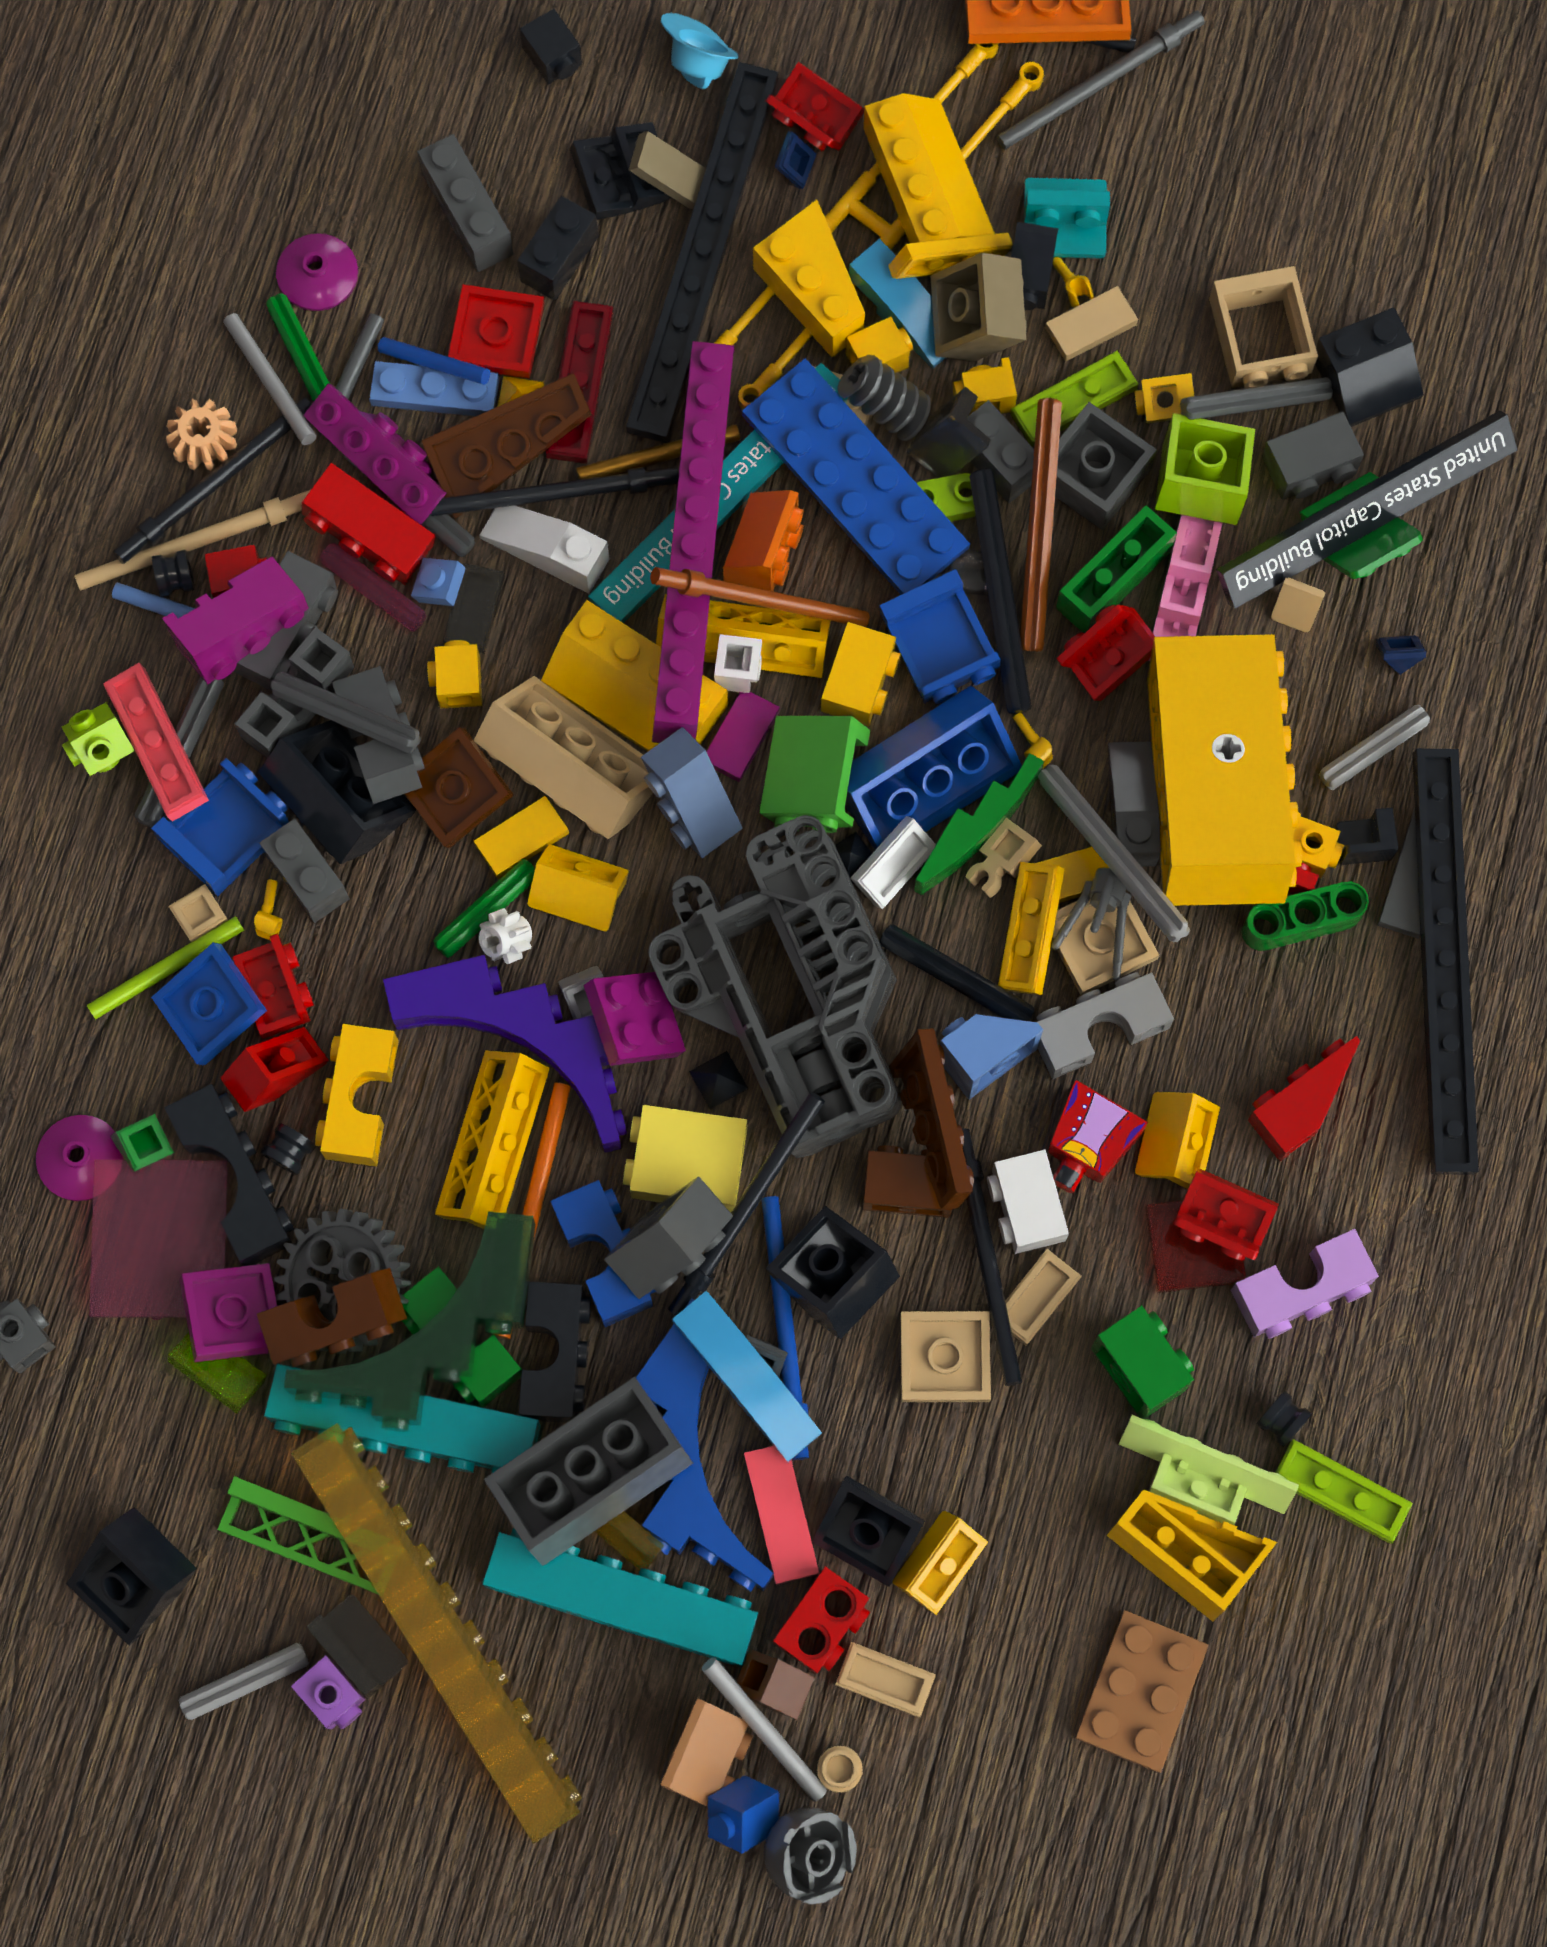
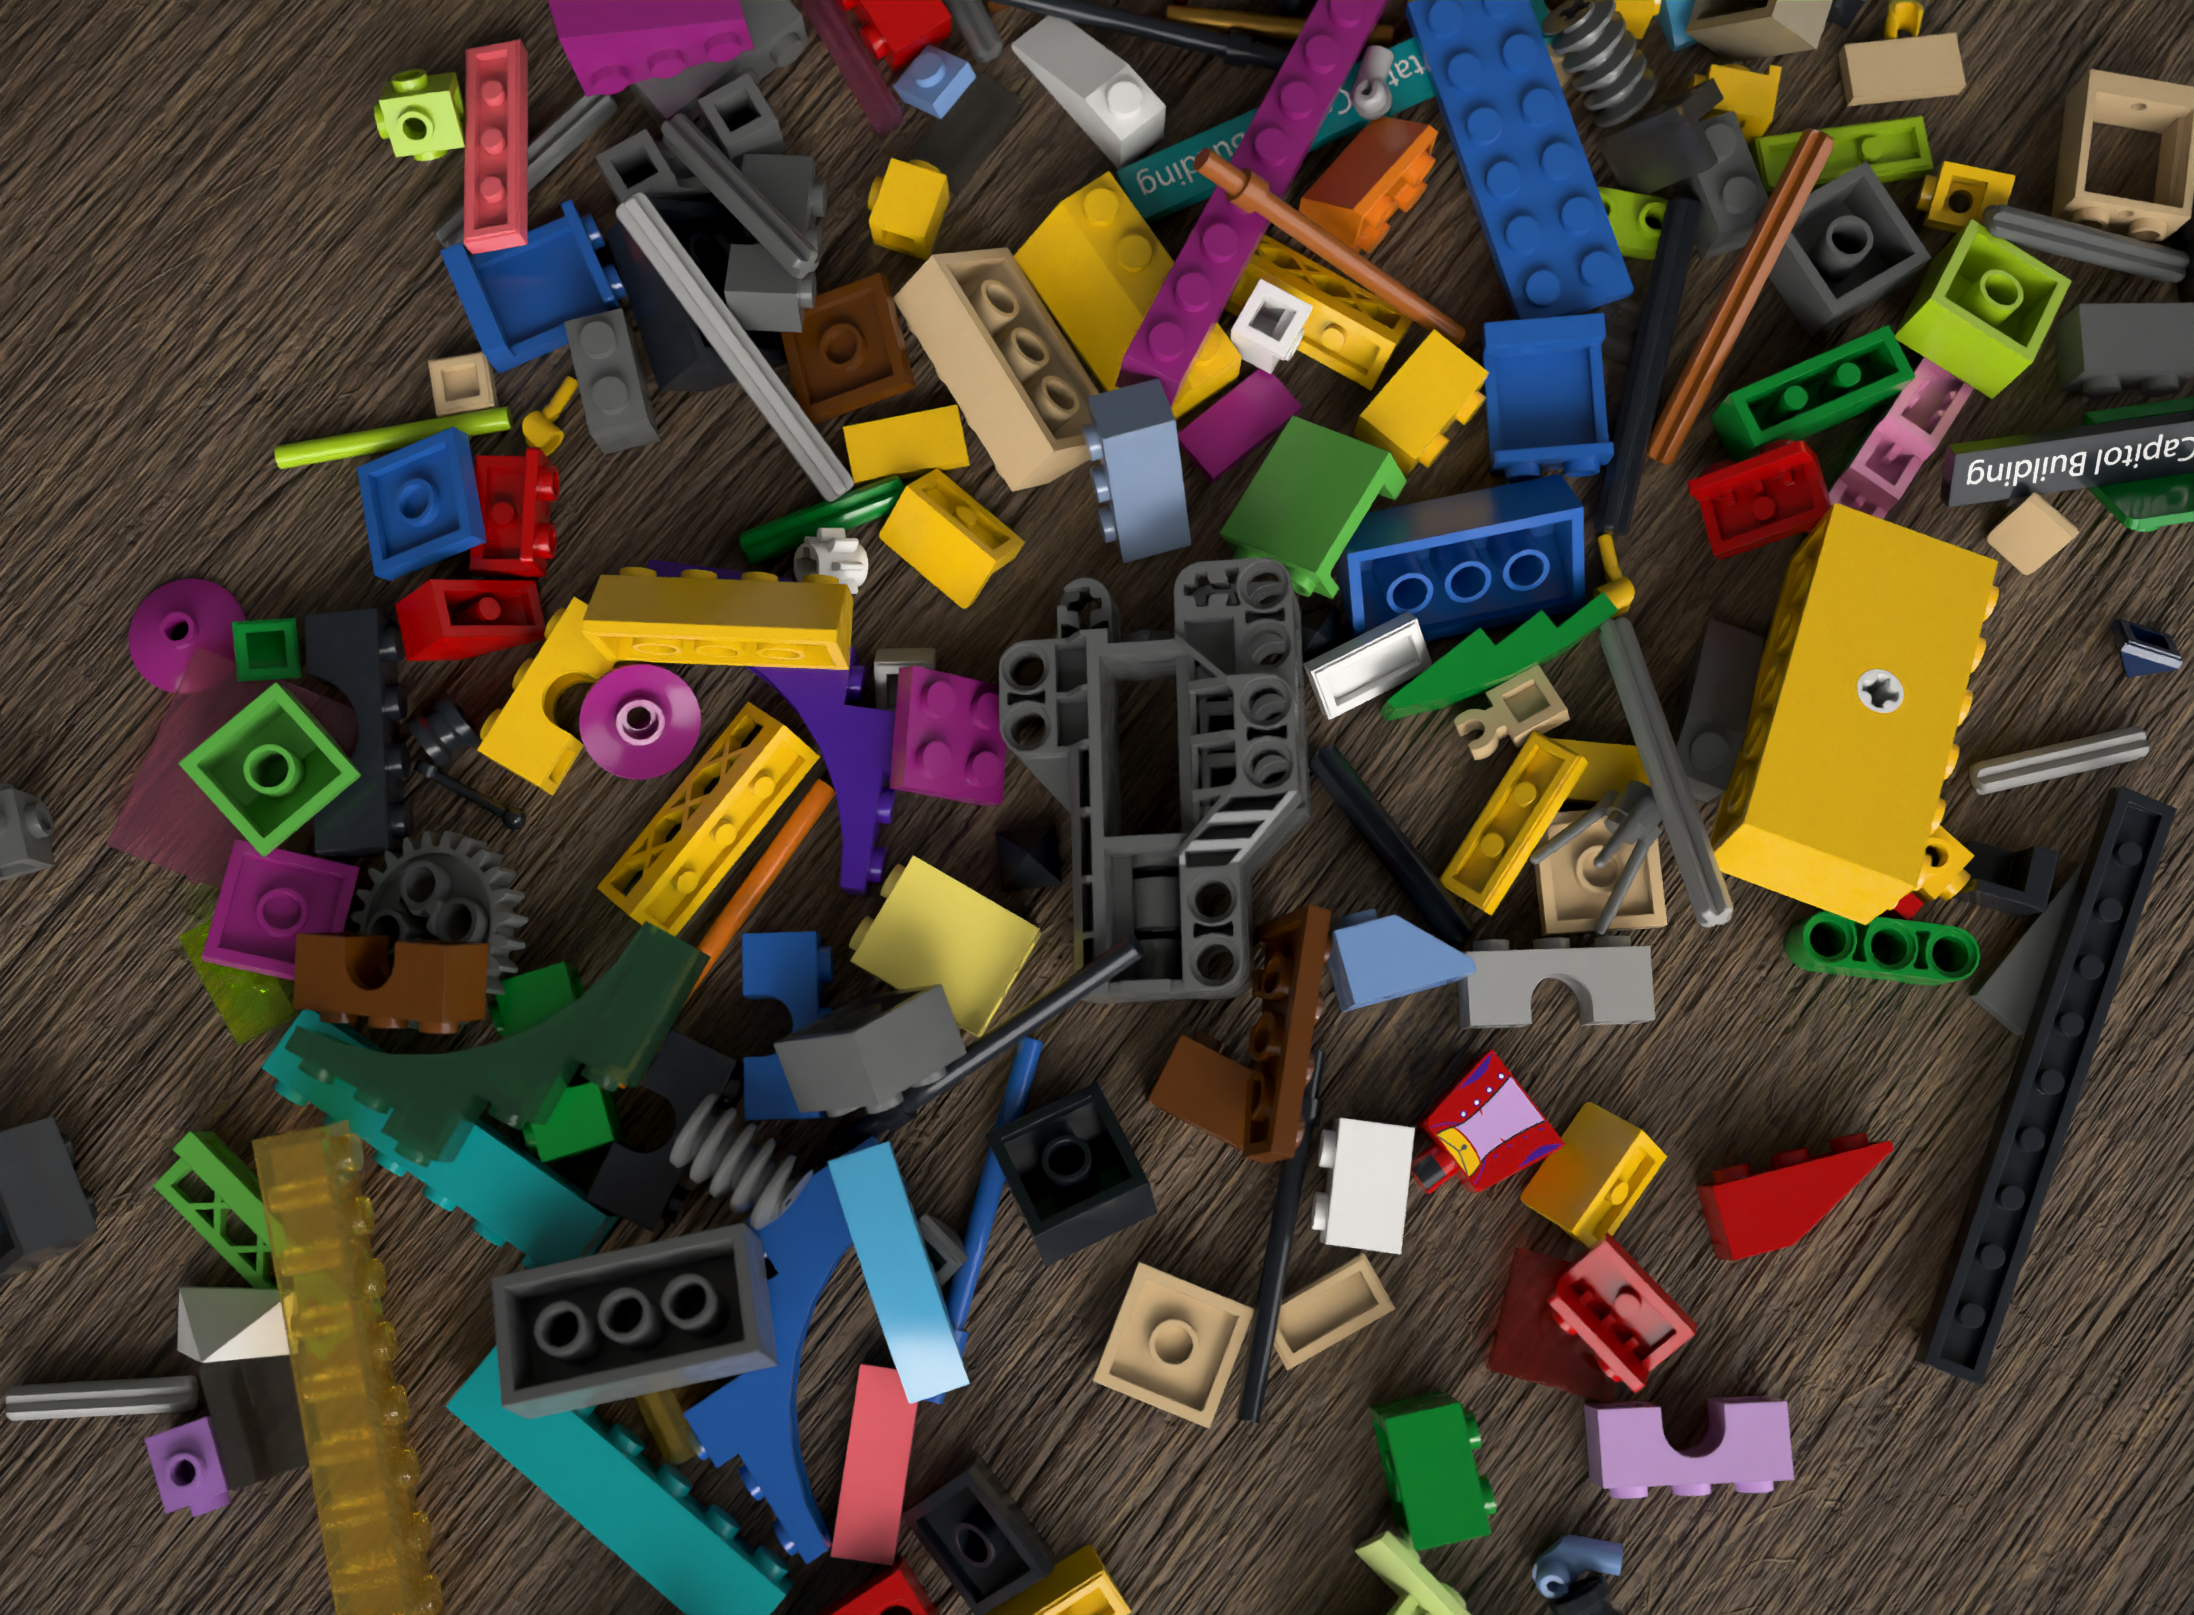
camera: 20 degrees right, 5 degrees up
(190, 1216) = (271, 768): none -> bright green slope
(314, 1593) = (230, 1323): none -> white slope
(356, 1191) = (512, 817): none -> black hinge
(384, 815) = (734, 346): none -> light grey axle
(437, 1096) = (647, 747): none -> magenta dish
(455, 998) = (721, 619): none -> yellow slope
(613, 1346) = (737, 1164): none -> dark grey piece
(739, 477) = (1370, 92): none -> light grey arm
(1260, 1389) = (1570, 1558): none -> medium blue arm

